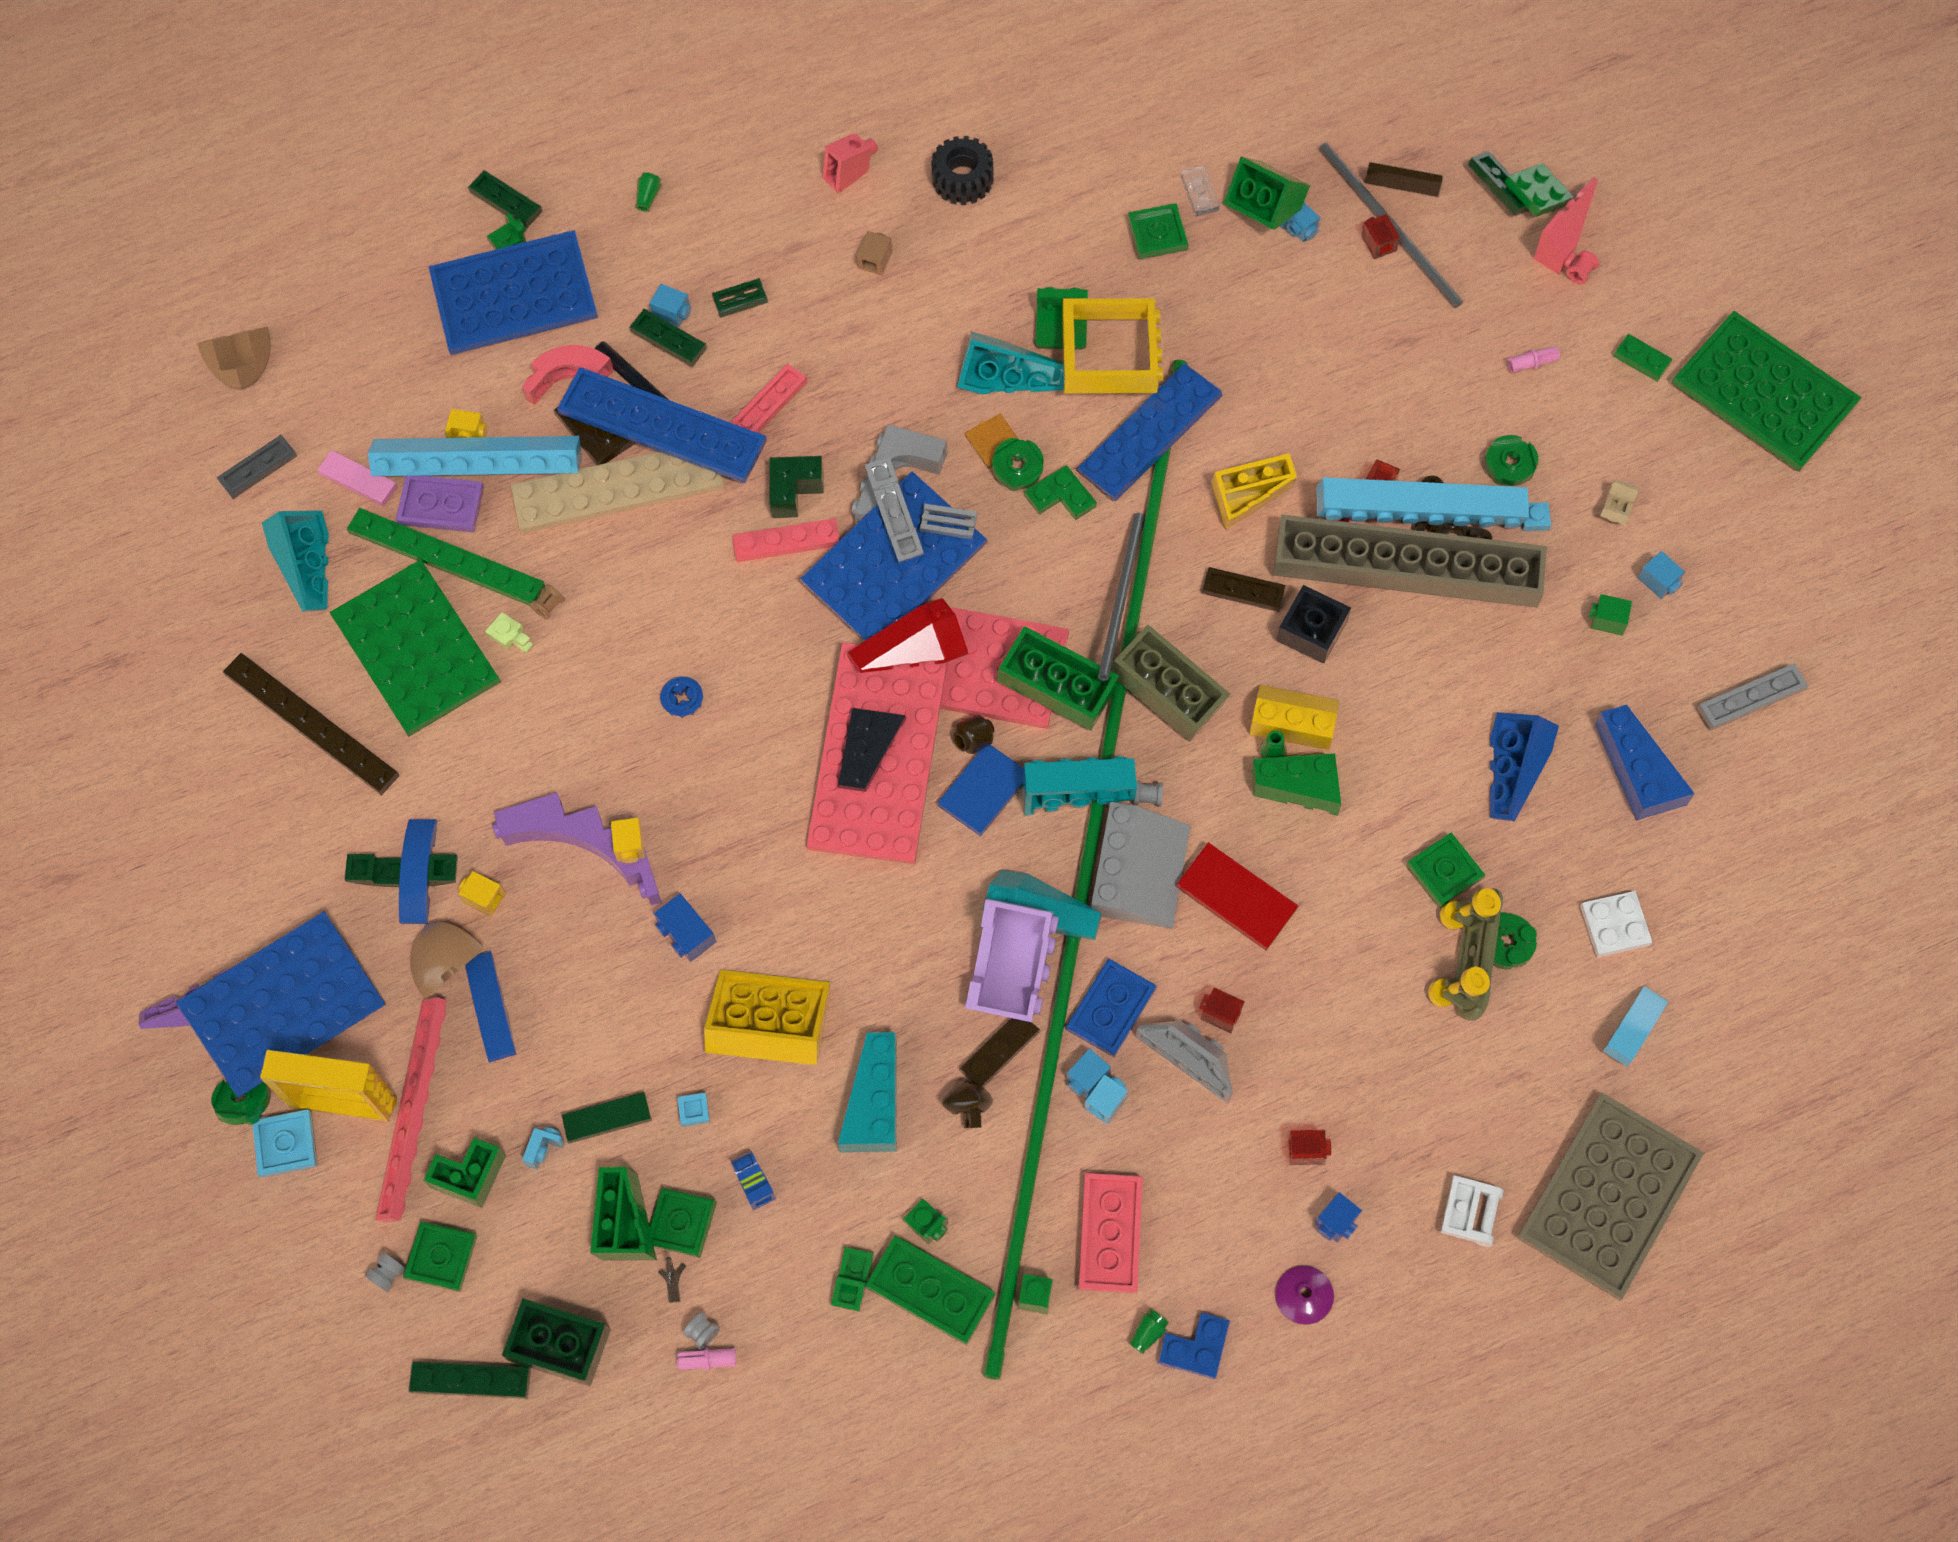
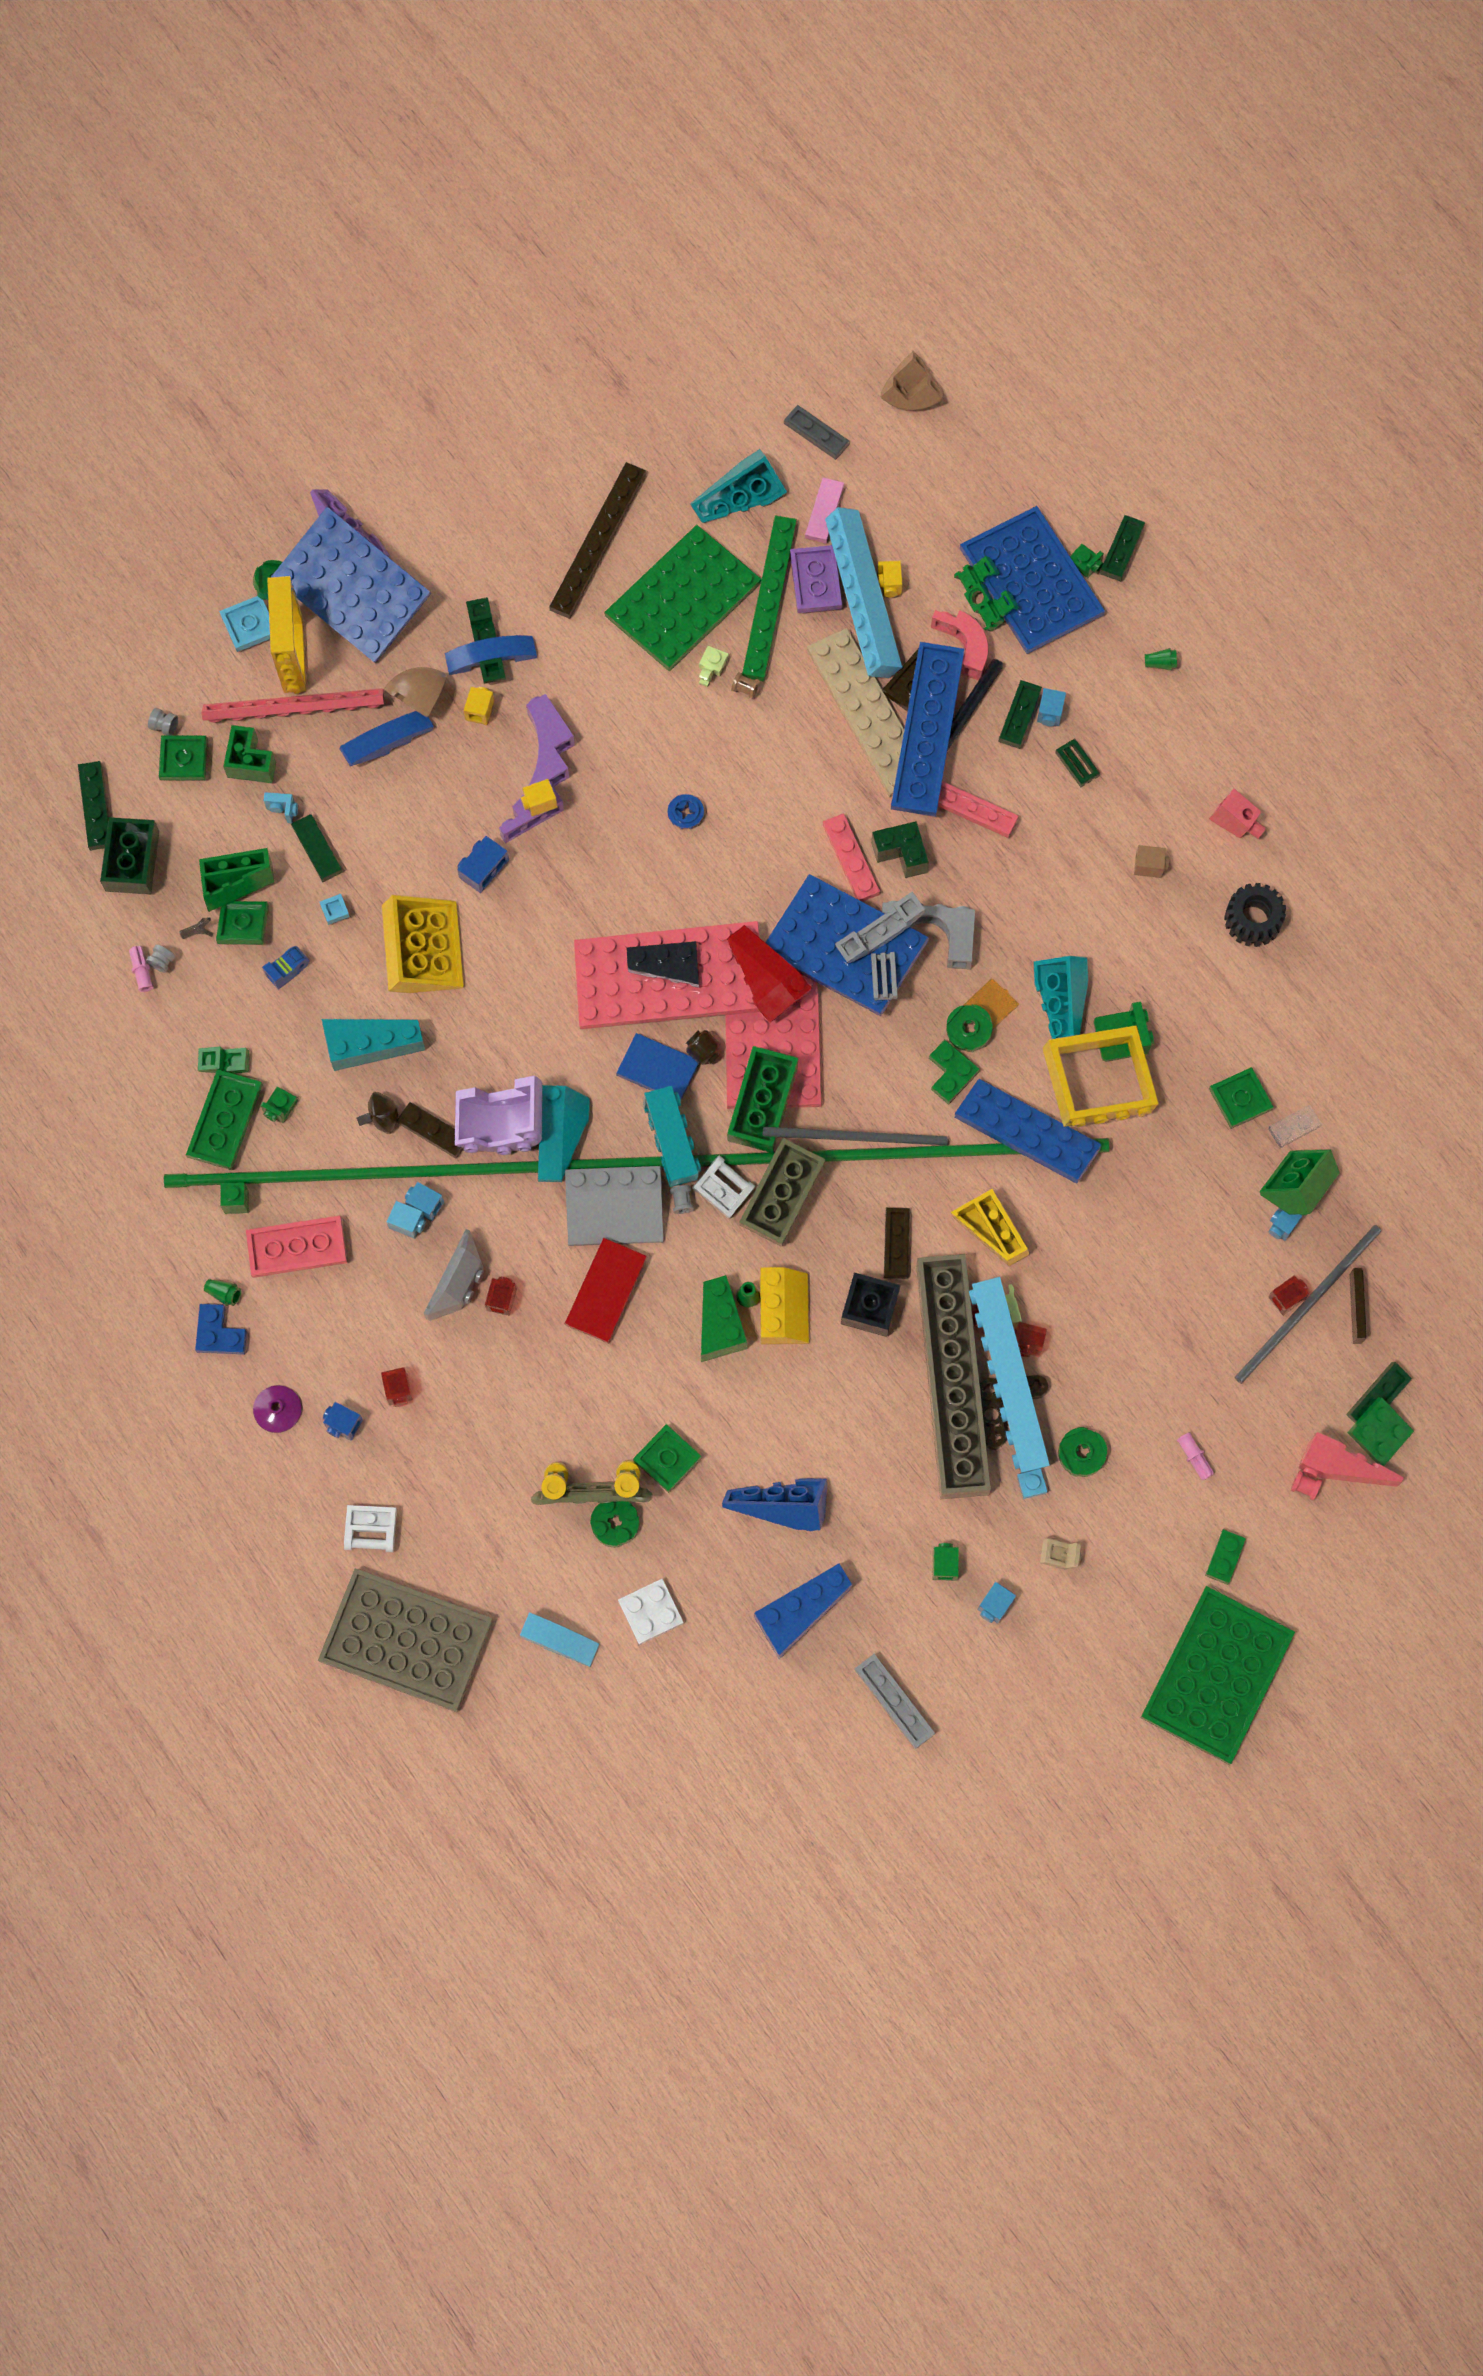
camera: 75 degrees right, 5 degrees up
(493, 344) = (989, 608): none -> green piece
(1111, 1007) = (487, 1209): blue tile -> none
(1149, 752) = (718, 1192): none -> white plate

